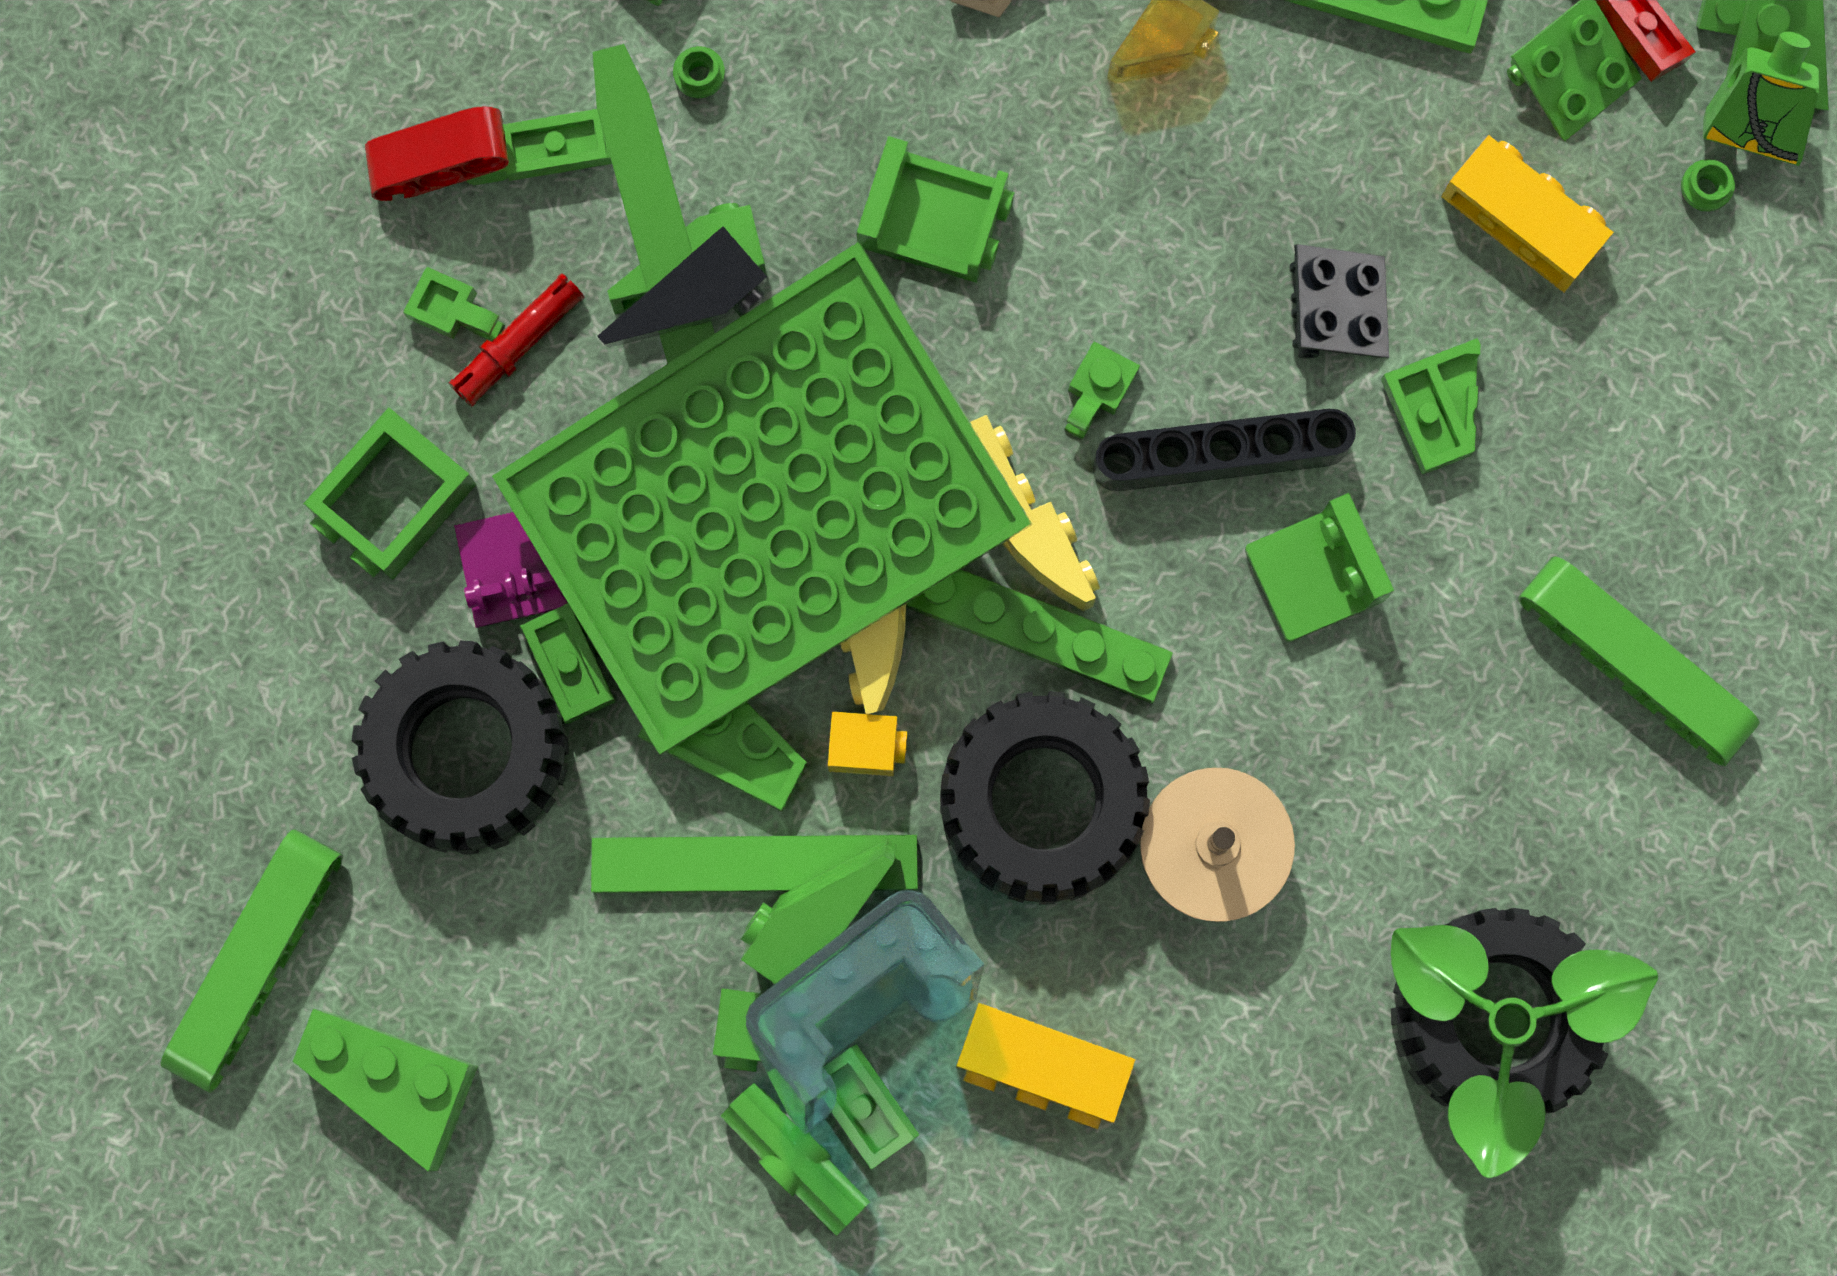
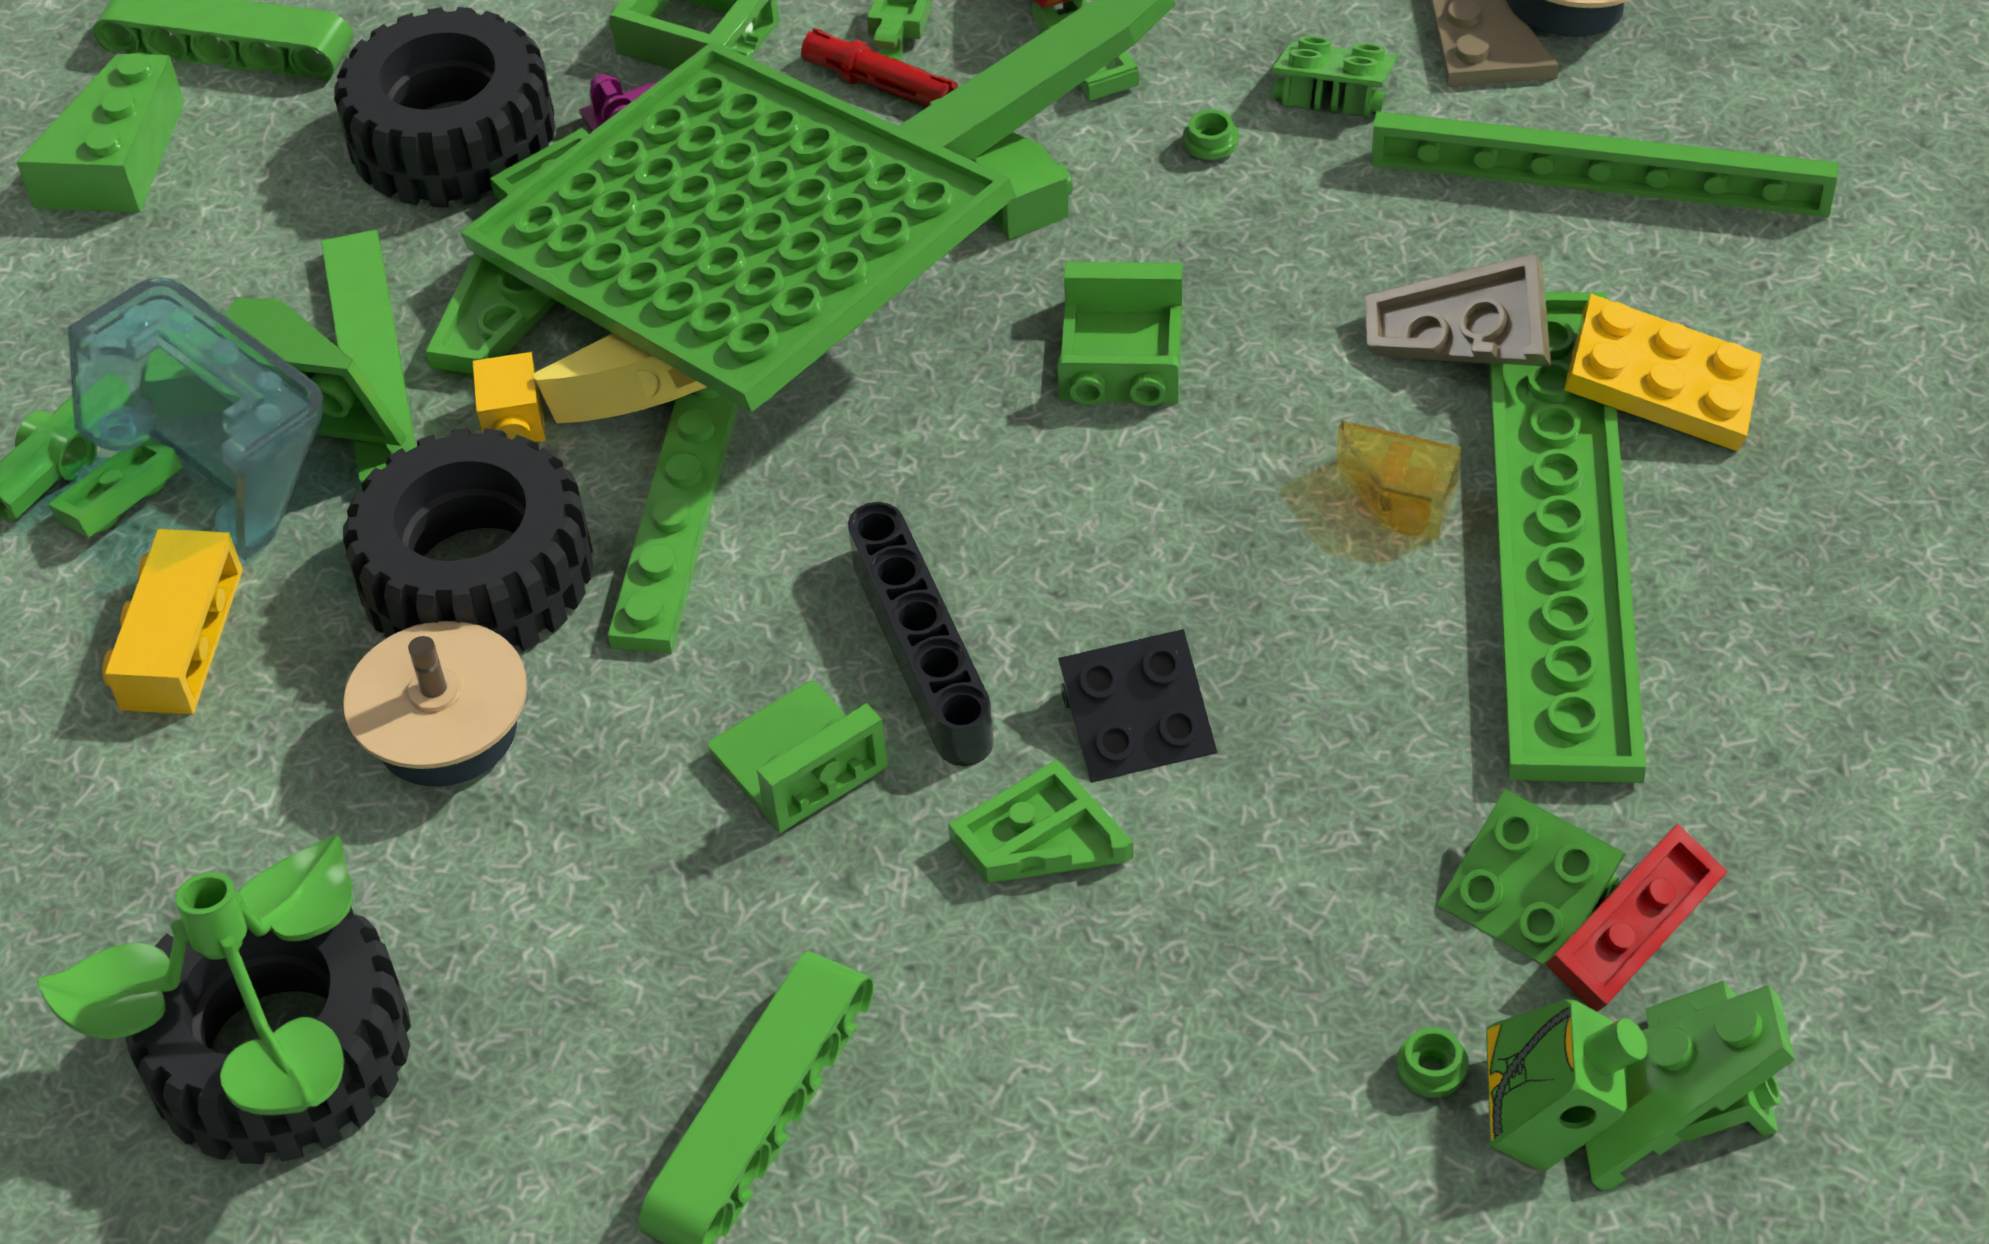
camera: 80 degrees right, 30 degrees down
(699, 290) = (929, 87): black slope -> none
(1045, 545) = (776, 481): light yellow slope -> none
(1099, 383) = (968, 522): bright green plate -> none
(1527, 212) = (1315, 865): yellow brick -> none

